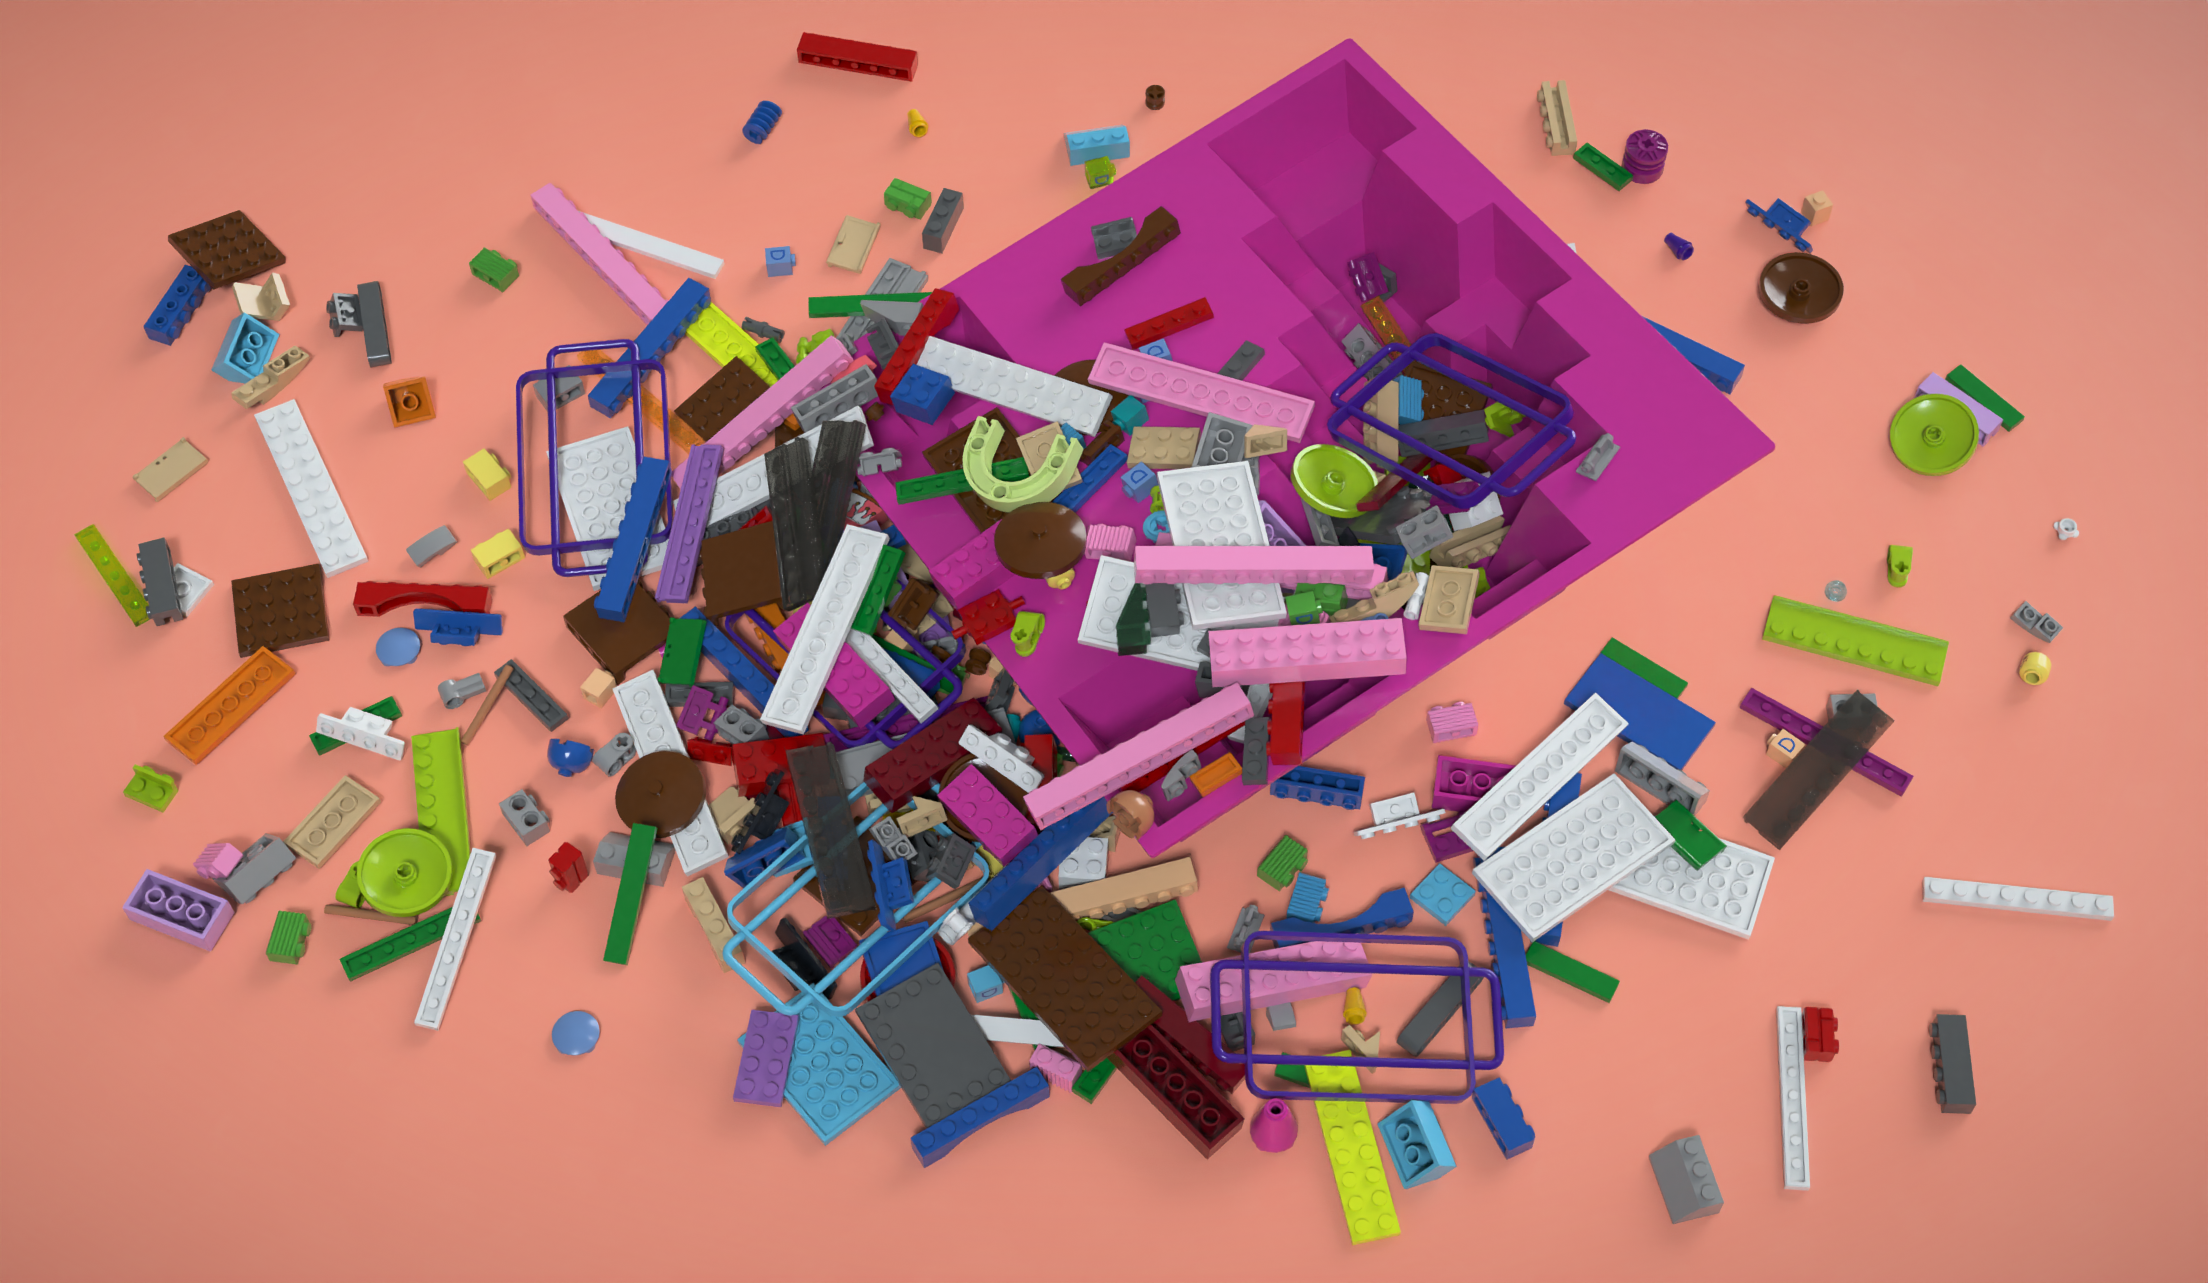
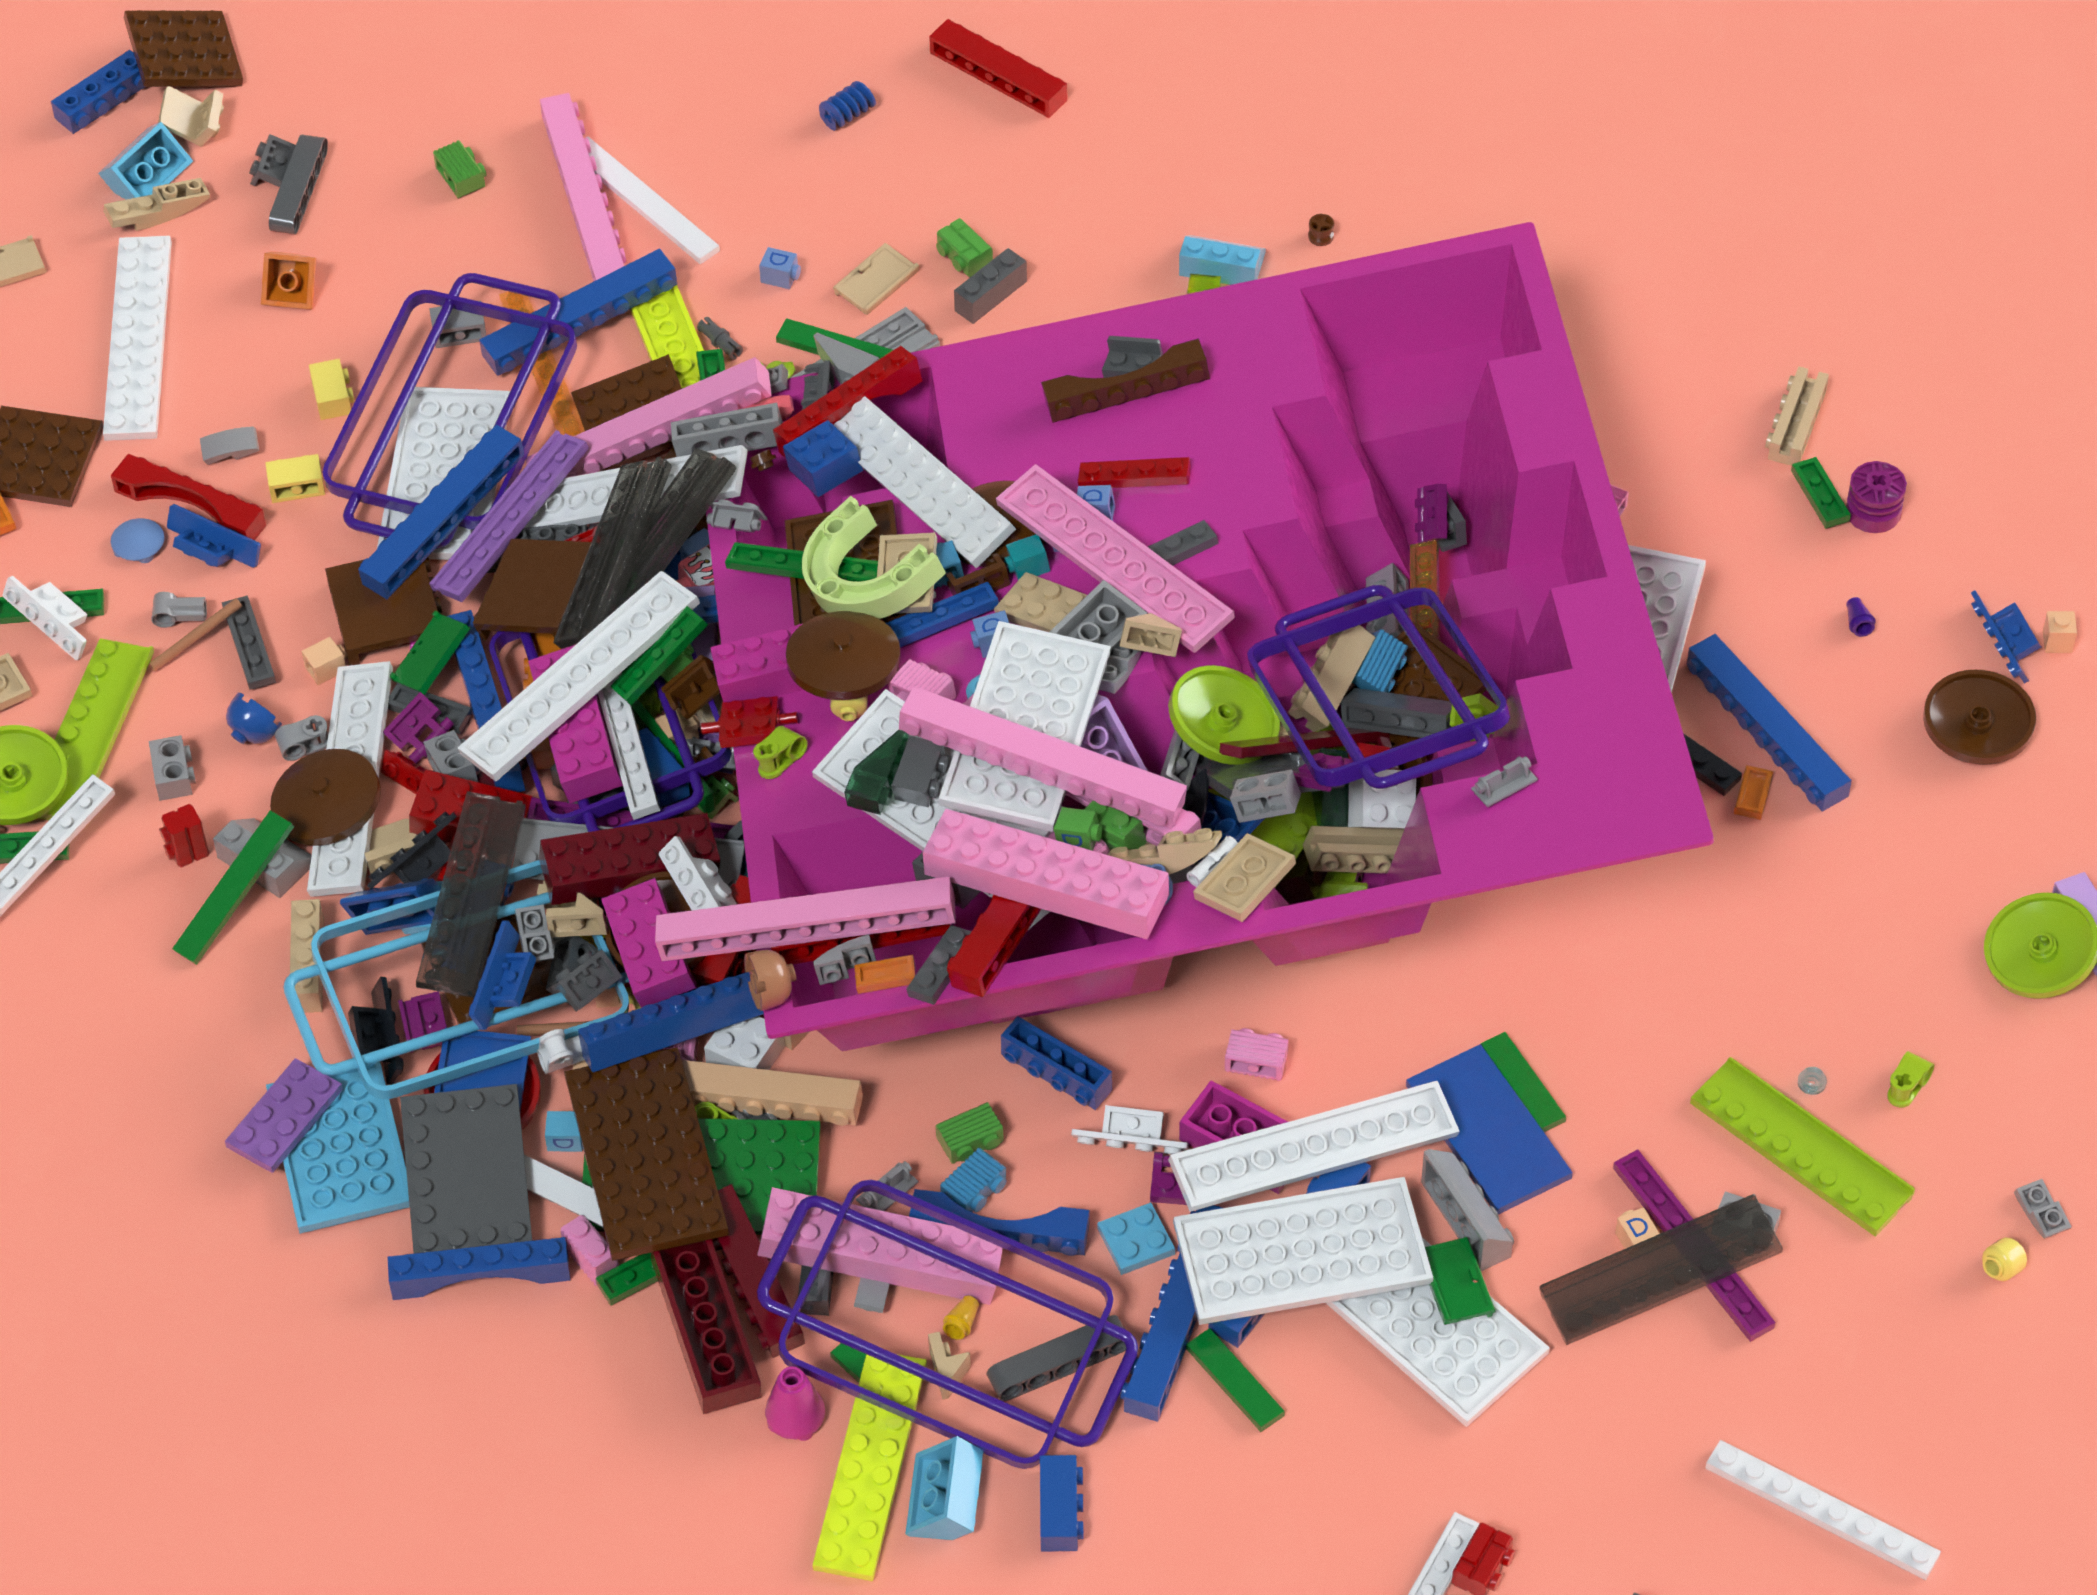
camera: 25 degrees right, 5 degrees down
(575, 1033) = (102, 1013): medium blue dish -> none
(917, 124) = (1024, 167): yellow cone -> none

